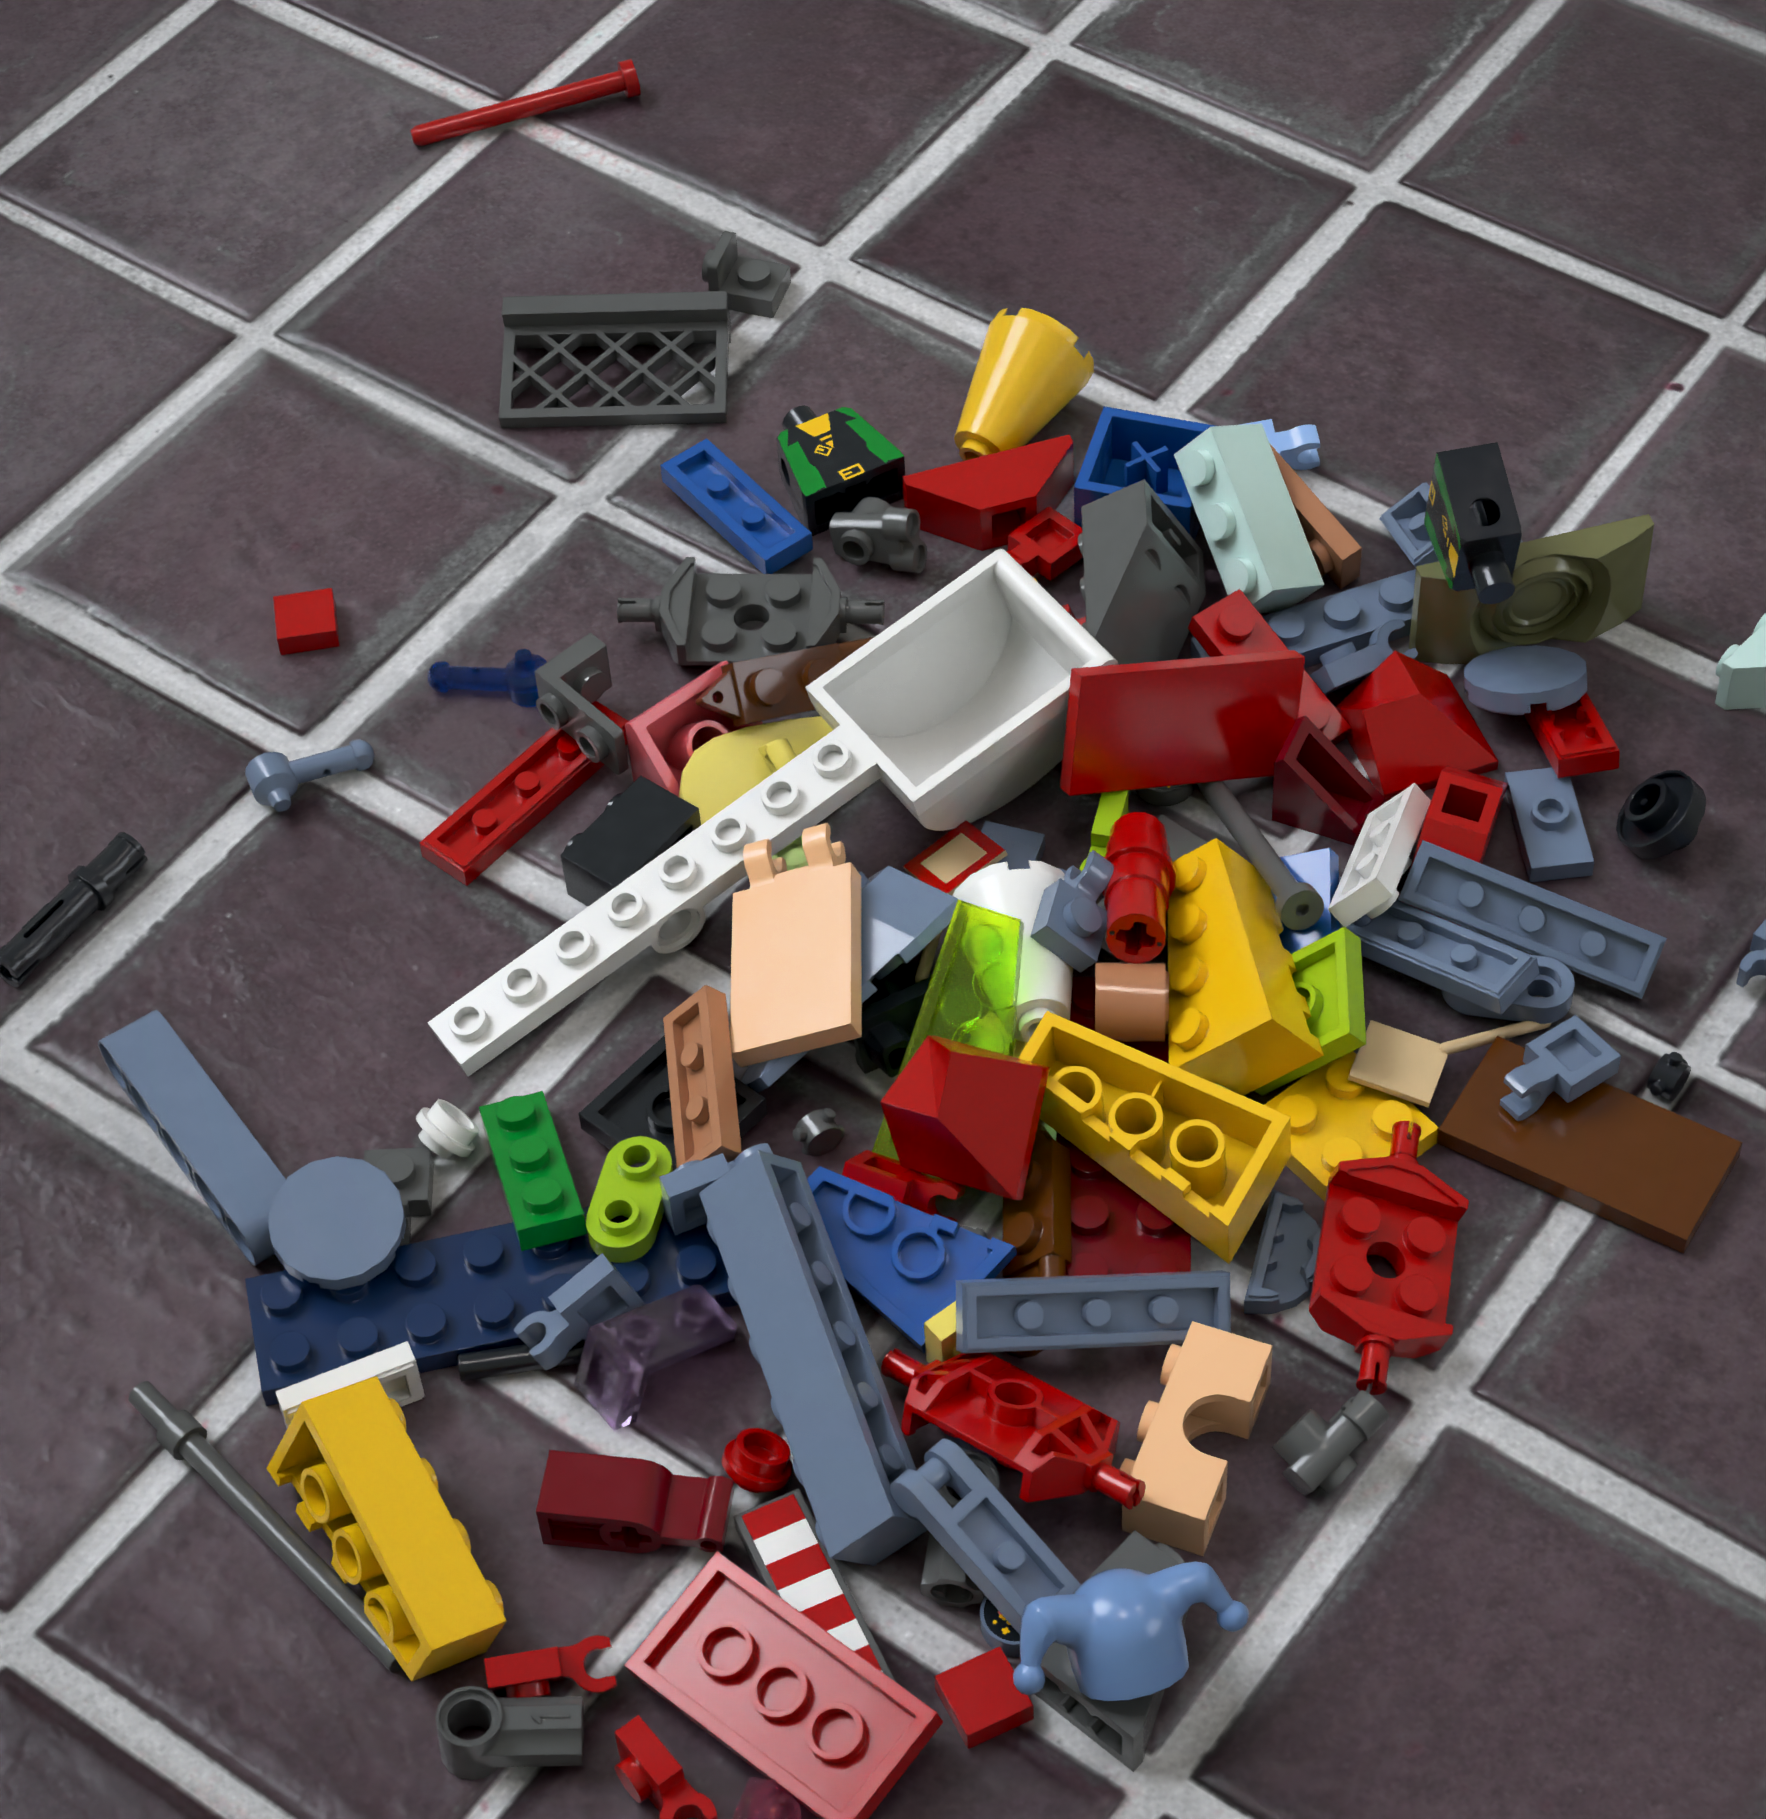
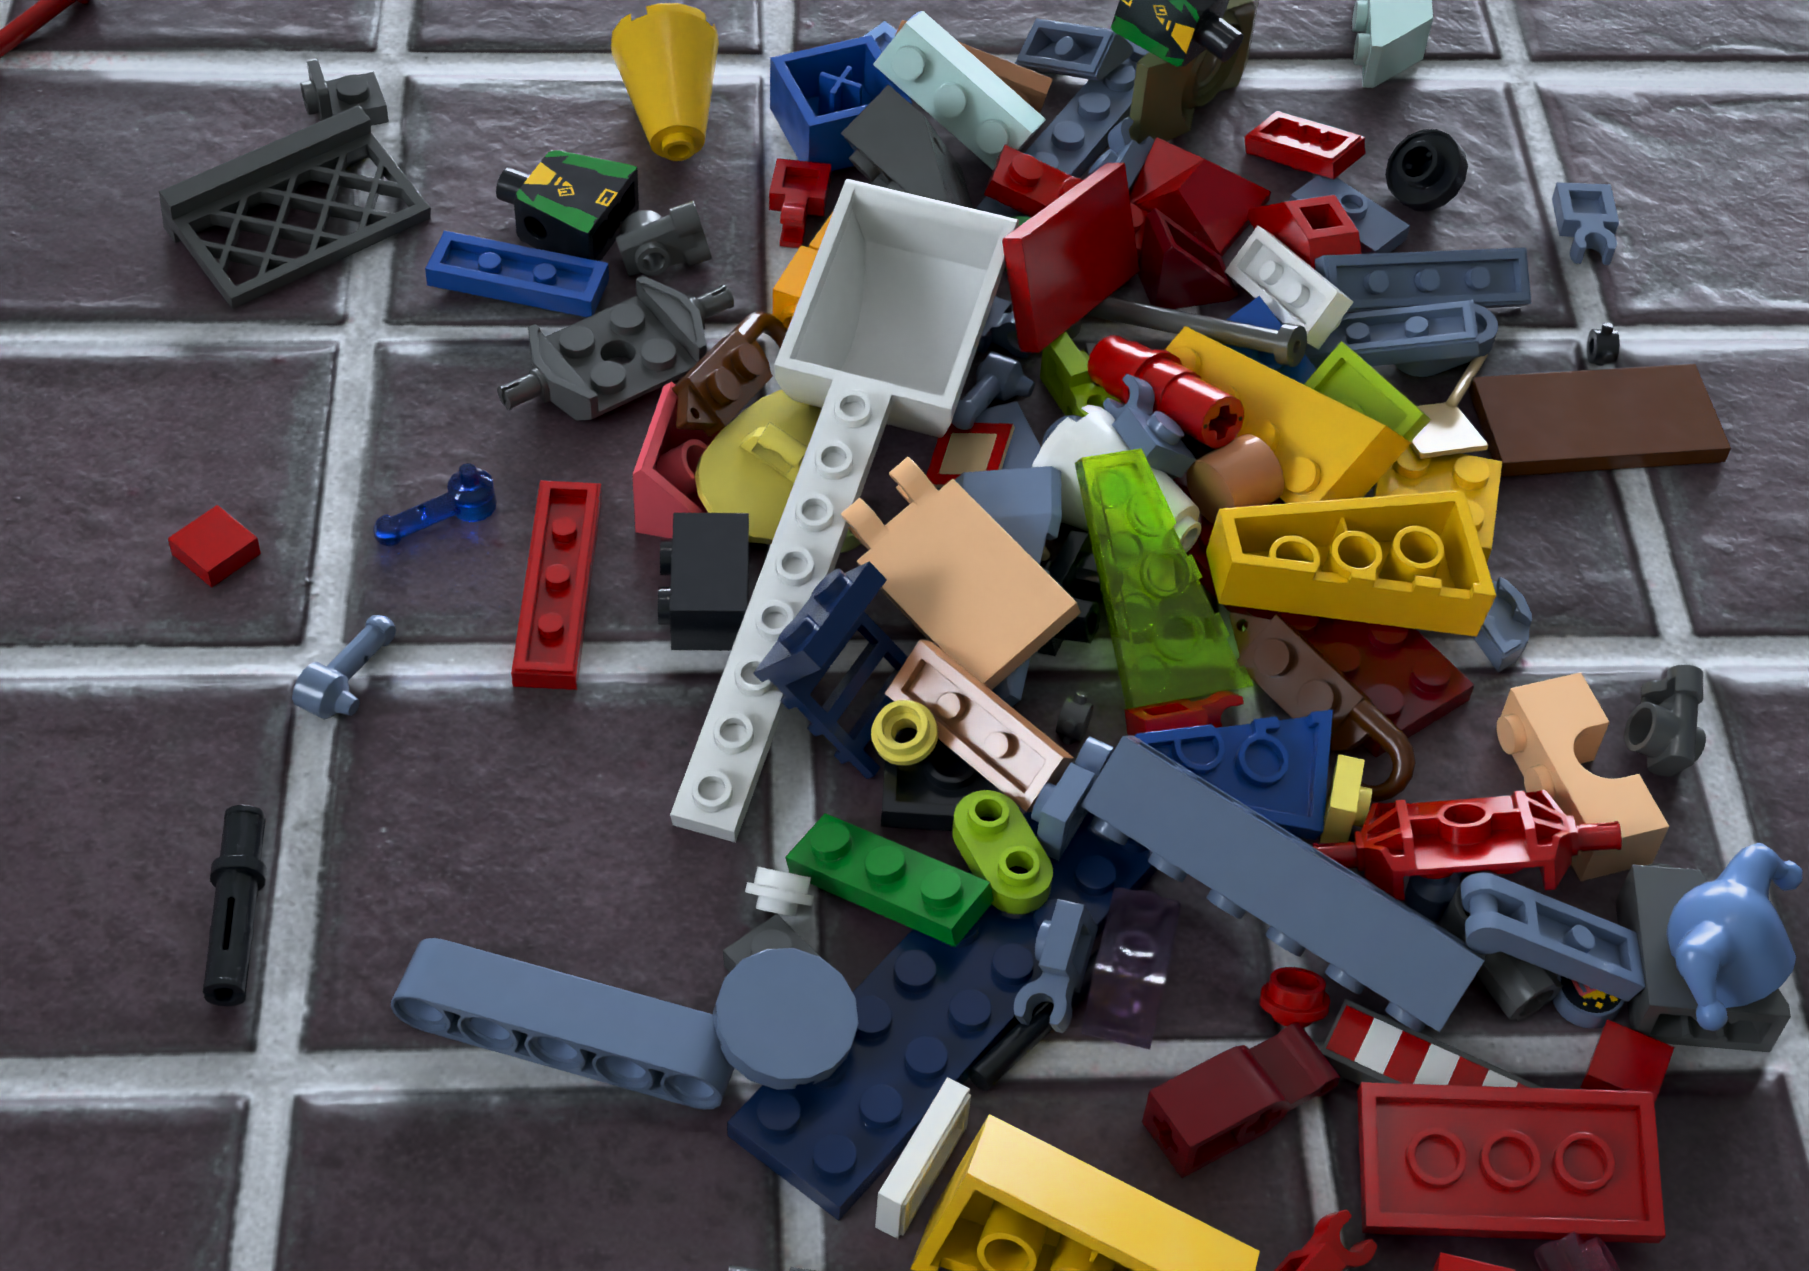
camera: 45 degrees left, 0 degrees up
(565, 698) = (549, 491): dark grey bracket -> none
(617, 946) = (814, 642): none -> dark blue plate
(643, 1056) = (902, 715): none -> light yellow plate
(967, 1115) = (1220, 626): red slope -> none
(991, 494) = (723, 171): red slope -> none
(1043, 803) = (997, 379): none -> sand blue piece
(1088, 1310) = (1430, 726): sand blue tile -> none
(1410, 1220) = (1569, 570): red plate -> none
(1525, 675) = (1244, 122): sand blue tile -> none
(1563, 1061) = (1551, 366): sand blue plate -> none

